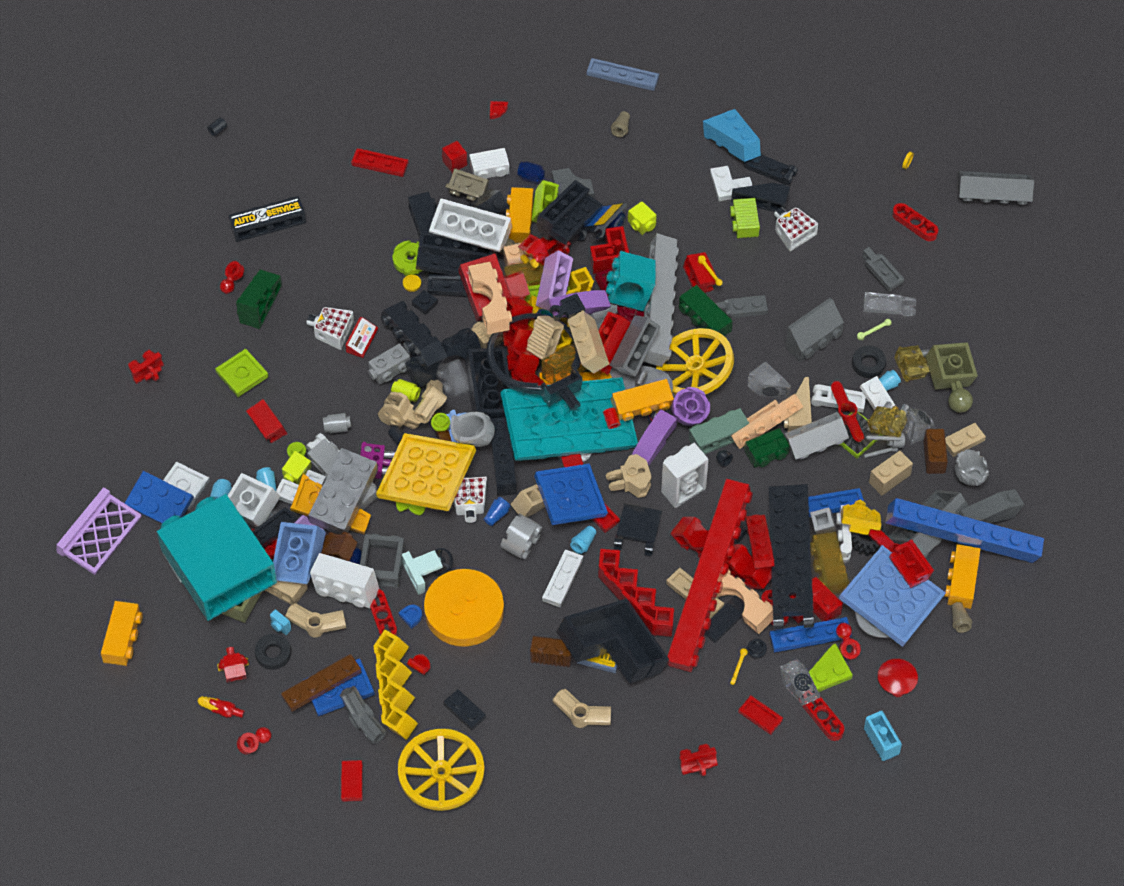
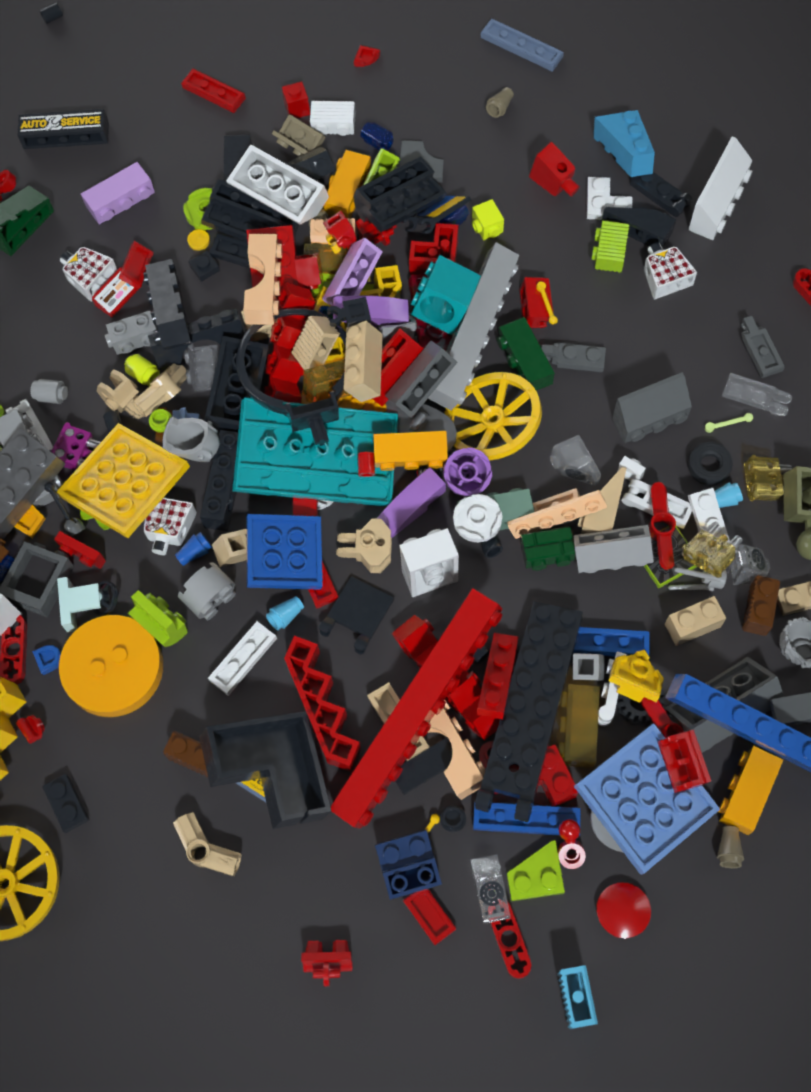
camera: 20 degrees right, 10 degrees up
(333, 260) = (118, 193): none -> lavender brick
(370, 312) = (134, 265): none -> red tile
(395, 516) = (72, 525): none -> hinge
(409, 532) = (86, 554): none -> red plate
(489, 563) = (157, 619): none -> lime brick
(683, 170) = (554, 171): none -> red torso
(709, 436) = (477, 518): none -> white tile
(735, 683) = (408, 864): none -> dark blue brick
(814, 377) = (634, 468): none -> white plate
(818, 158) = (721, 191): none -> white slope

